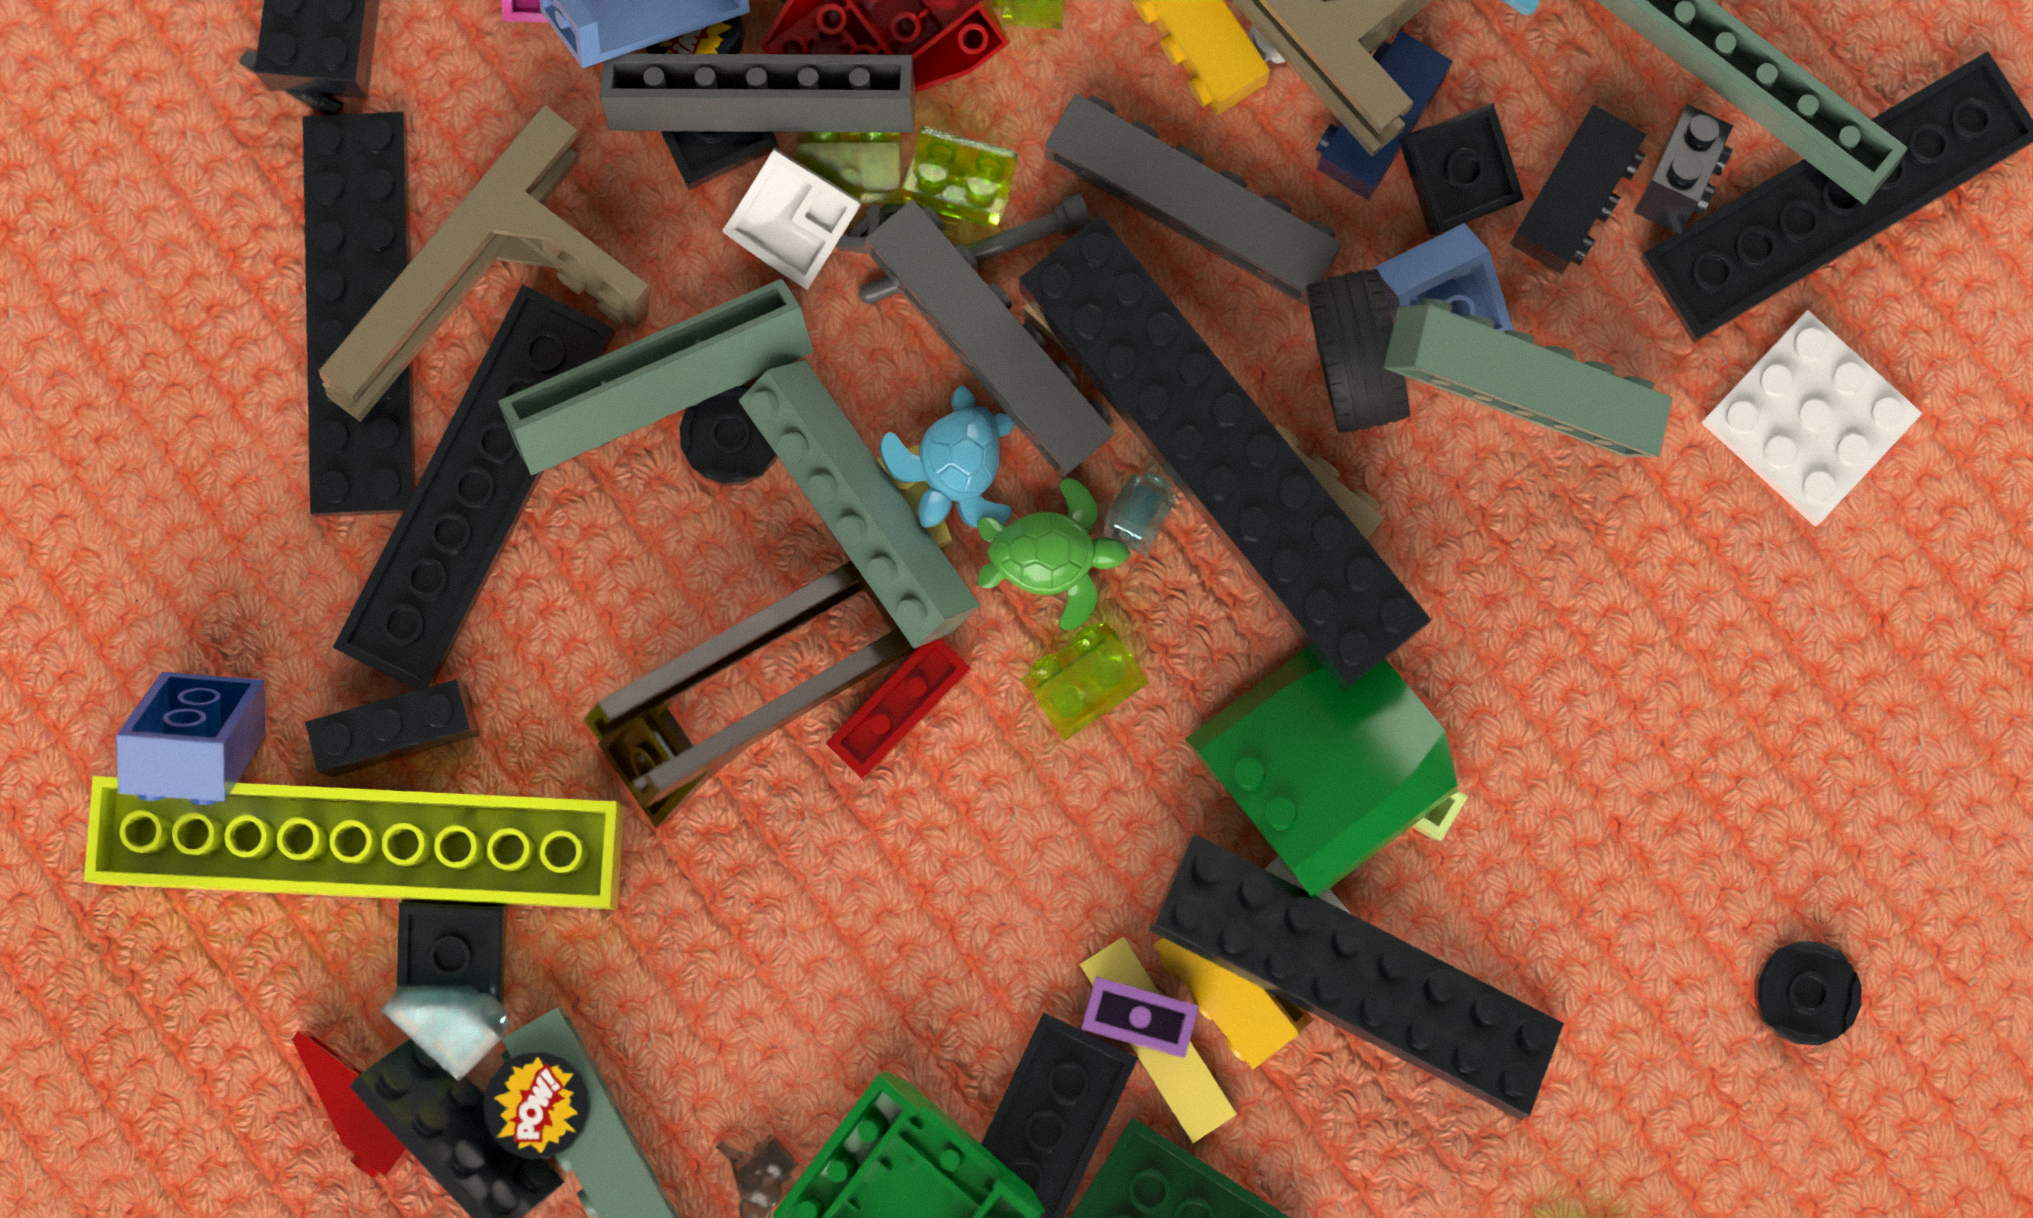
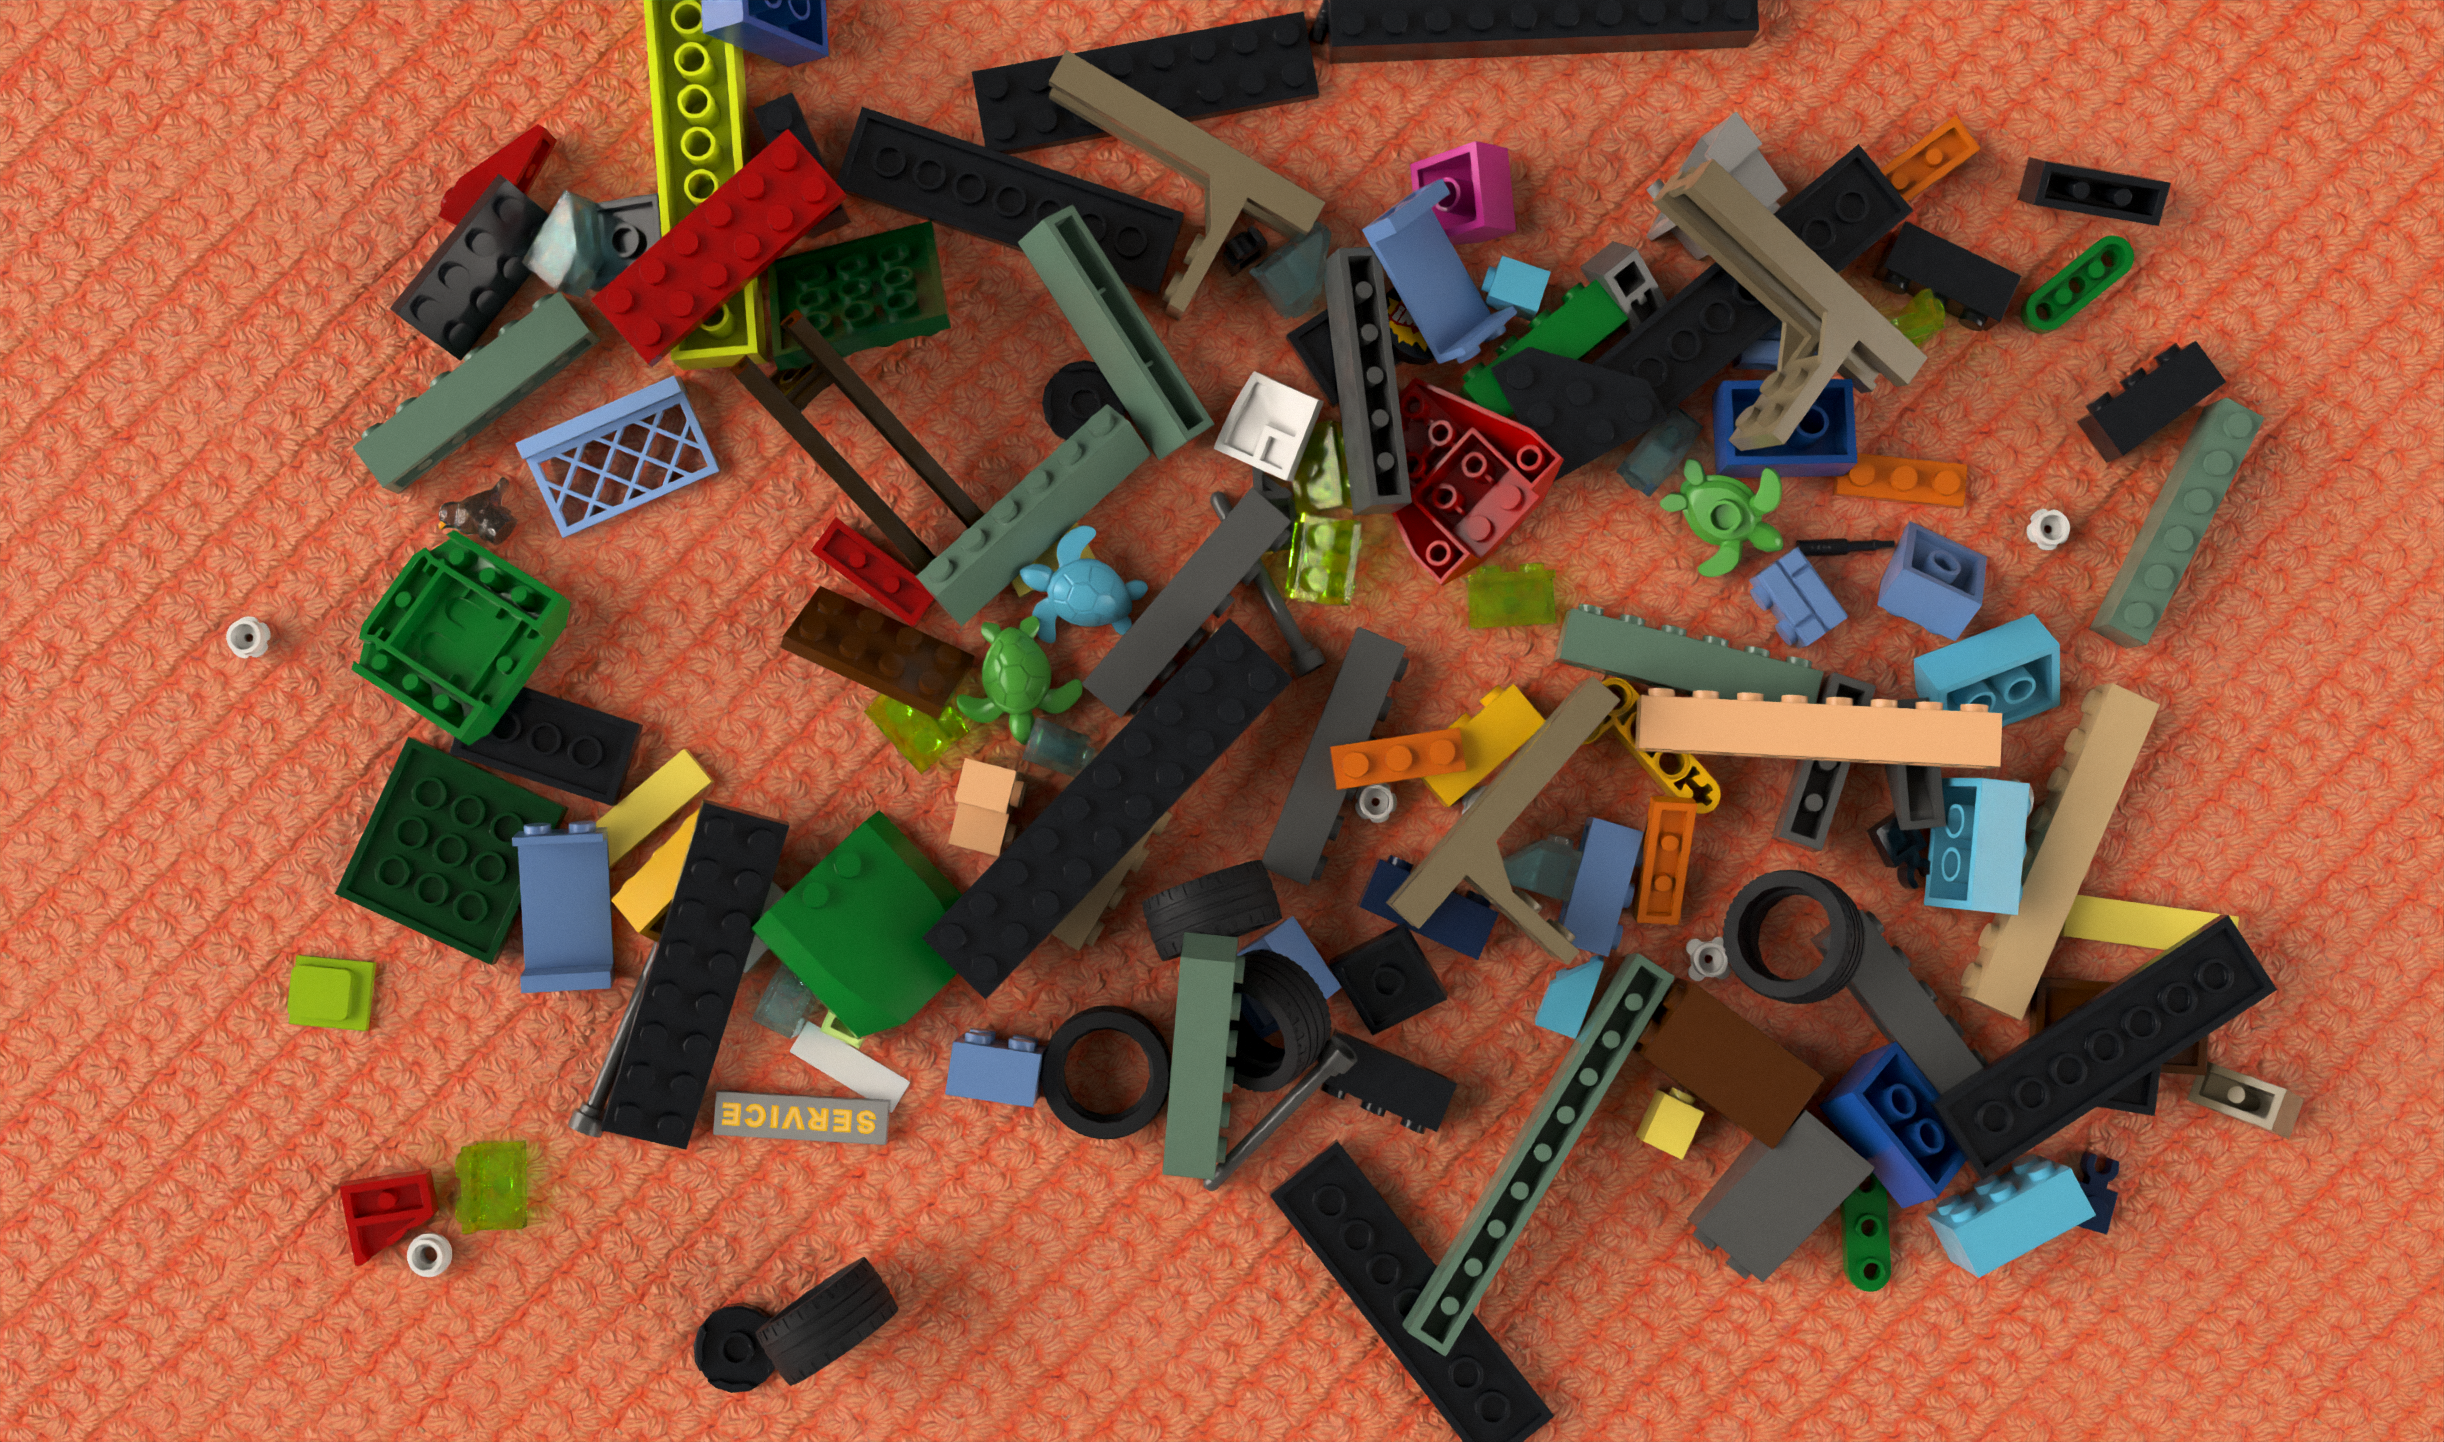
camera: 75 degrees right, 5 degrees up
(483, 828) = (719, 248): none -> red plate
(537, 1105) = (506, 327): tile -> none
(553, 653) = (860, 293): none -> dark green plate
(577, 215) = (1244, 250): none -> black plate
(615, 164) = (1294, 272): none -> clear light blue slope
(668, 1010) = (602, 422): none -> light blue fence
(996, 709) = (878, 652): none -> reddish brown plate
(1140, 1017) = (637, 802): medium lavender brick -> none
(1197, 607) = (986, 807): none -> light nougat brick
(1206, 118) = (1397, 758): none -> orange plate
(1251, 146) = (1376, 813): none -> white plate
(1255, 1129) = (565, 907): none -> medium blue panel
(1401, 875) = (785, 1004): none -> clear light blue slope
(1486, 818) = (848, 1065): none -> white sticker
(1495, 255) = (1301, 1016): none -> black tyre
(1508, 1133) = (589, 1116): none -> dark grey piece
(1512, 630) = (996, 1068): none -> medium blue brick
(1541, 880) = (801, 1117): none -> light grey tile
(1549, 236) = (1334, 1059): none -> dark grey piece
(1575, 463) = (1092, 1123): none -> black tyre
(1684, 168) = (1411, 1167): black brick -> none
(1789, 864) = (827, 1321): none -> black tyre
(1811, 418) = (1218, 1299): white plate -> none

